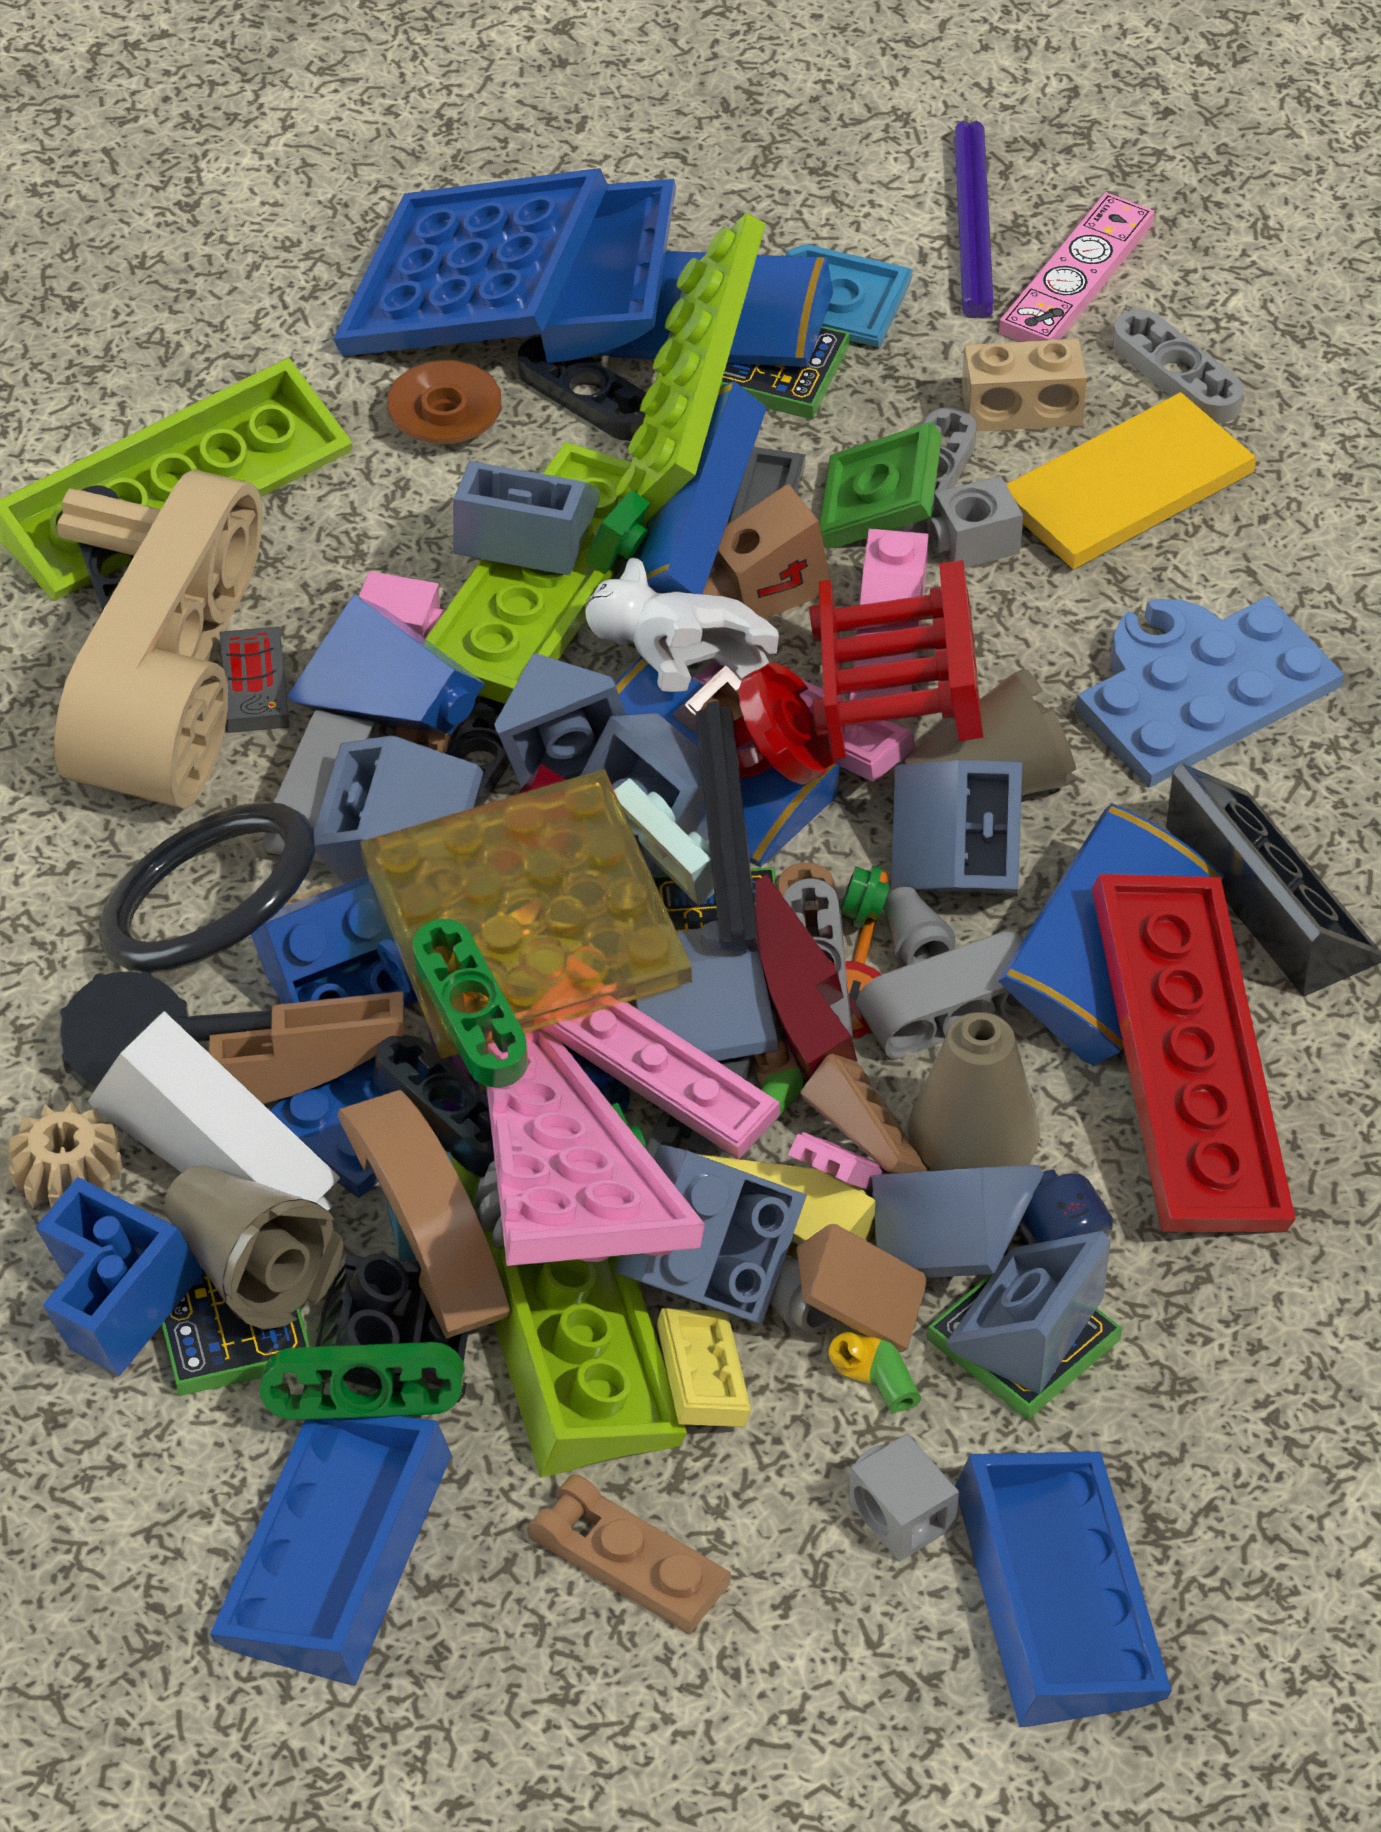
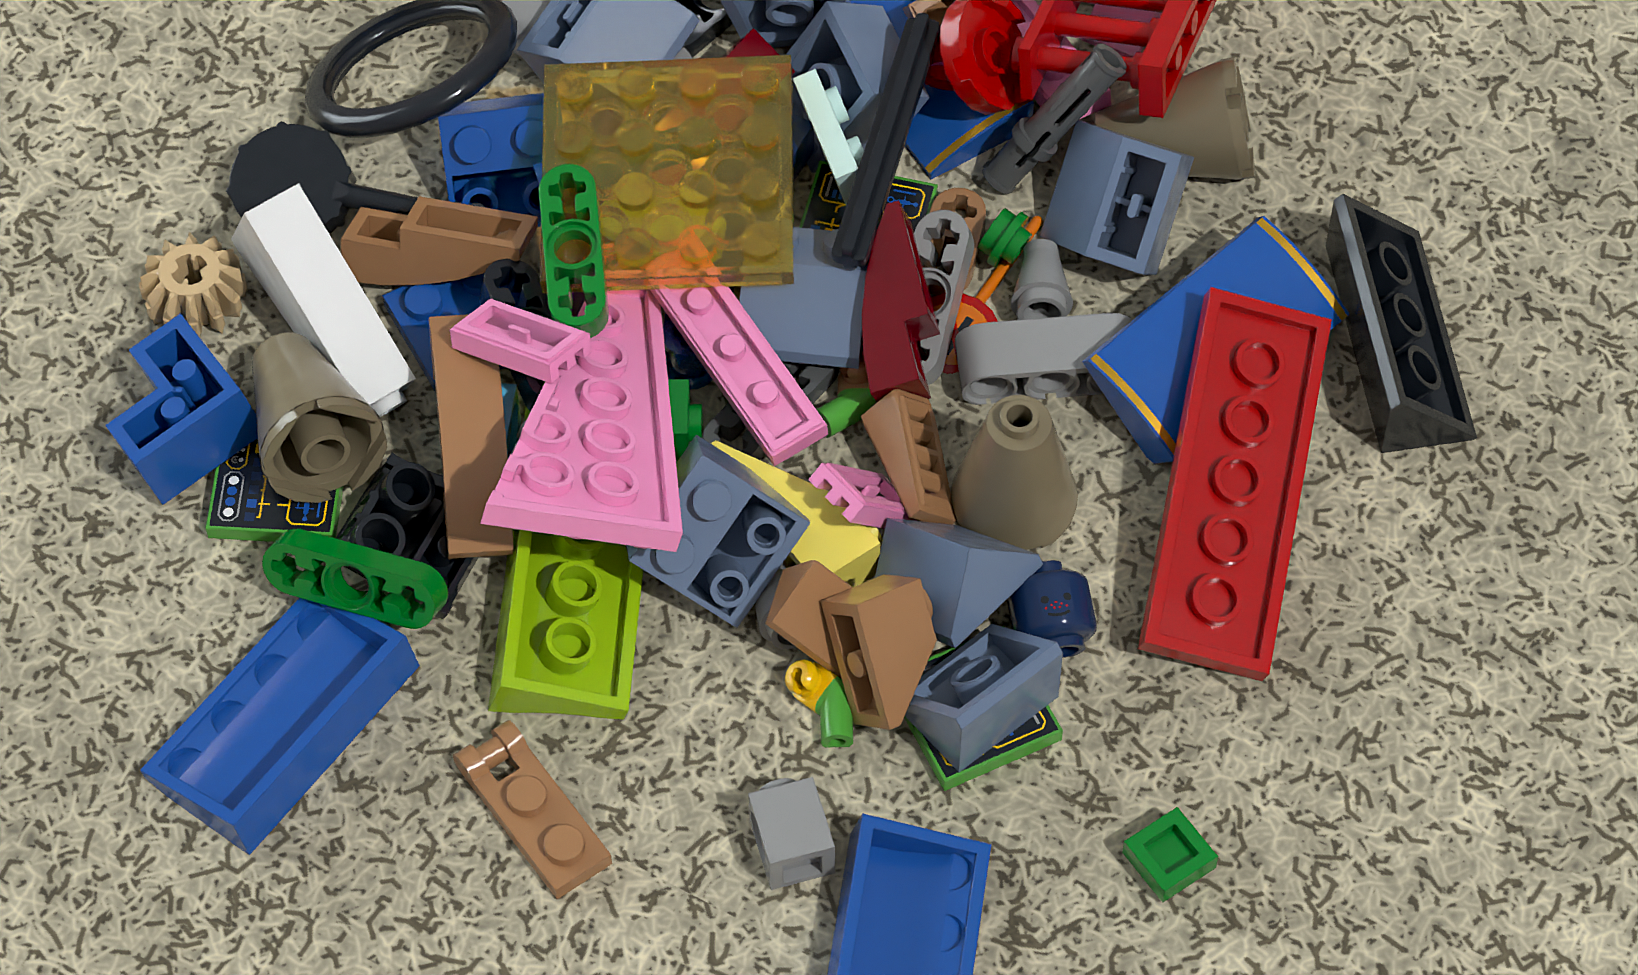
camera: 20 degrees right, 10 degrees up
(451, 1099) = (520, 340): none -> bright pink tile
(703, 1367) = (667, 654): light yellow plate -> none
(860, 791) = (1037, 137): none -> dark grey pin
(922, 1294) = (881, 645): none -> medium nougat slope
(1201, 683) = (1420, 110): medium blue plate -> none
(1276, 1410) = (1170, 854): none -> green plate

